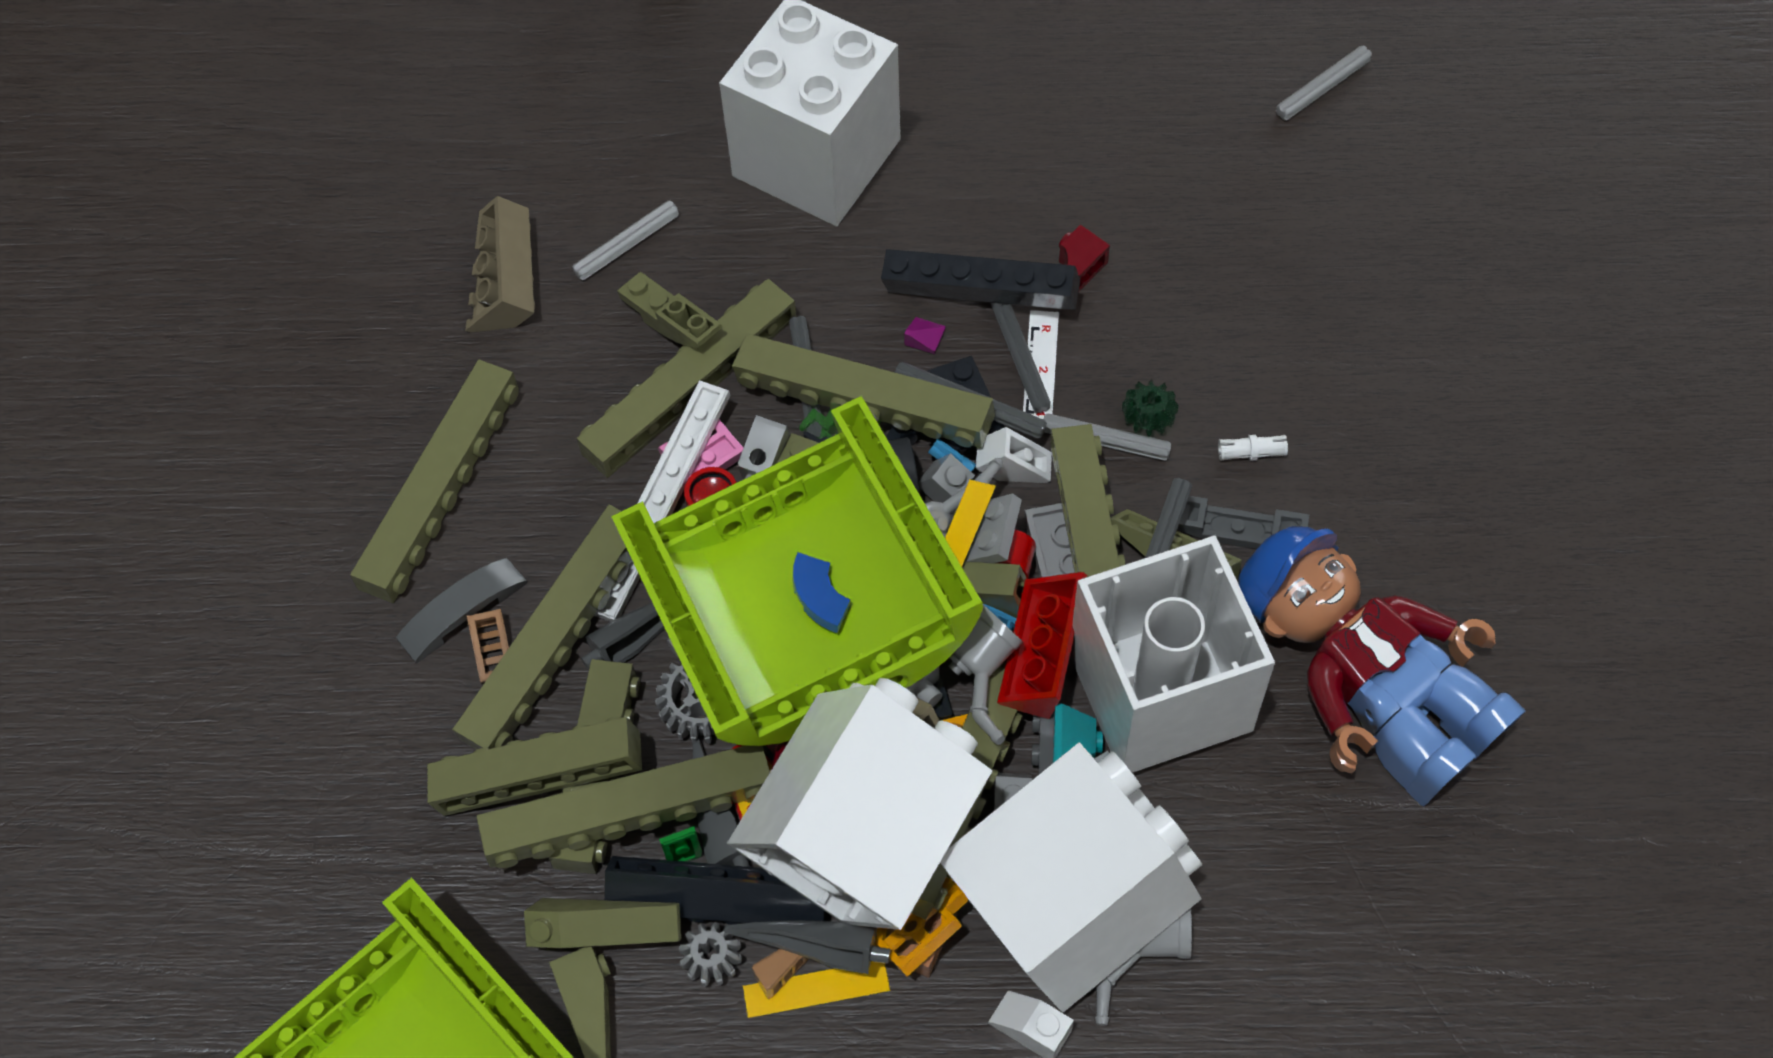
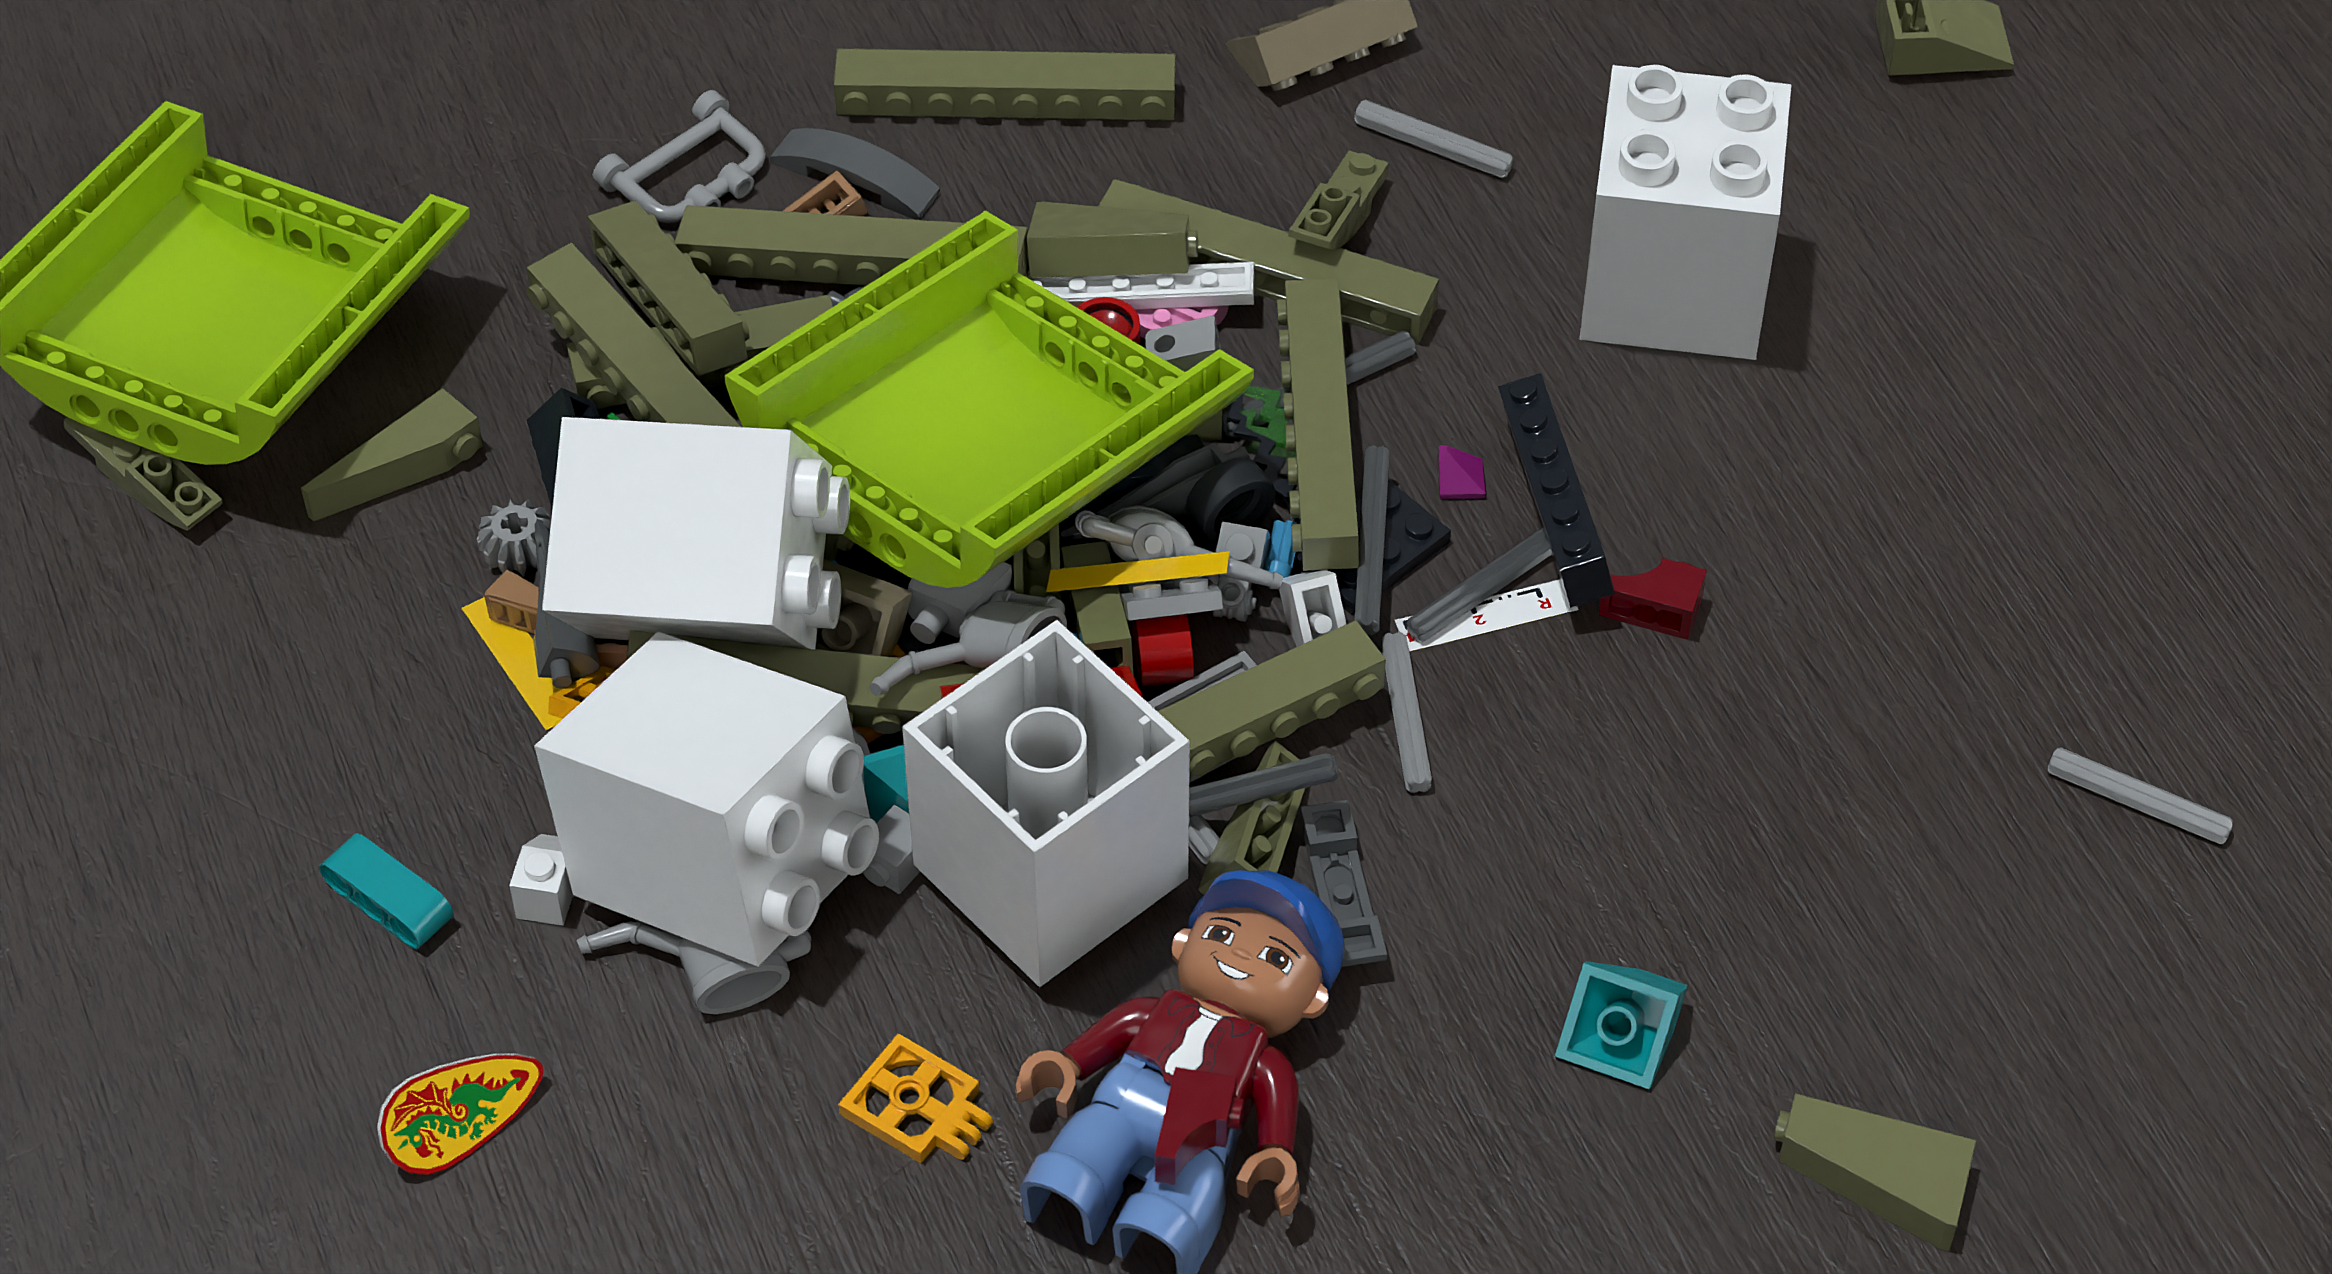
camera: 65 degrees right, 10 degrees down
(437, 719) = (712, 113): none -> light grey bar
(600, 923) = (504, 410): olive slope -> none
(635, 461) = (1107, 241): none -> olive slope
(817, 594) = (991, 447): blue tile -> none
(1150, 407) = (1470, 740): clear green gear -> none
(1252, 447) = (1473, 876): white pin -> none
(1331, 825) = (948, 1120): none -> light orange piece
(1401, 403) = (1621, 1021): none -> teal slope
(1443, 662) = (1196, 1118): none -> dark red arch
(1547, 312) = (1881, 1164): none -> olive slope

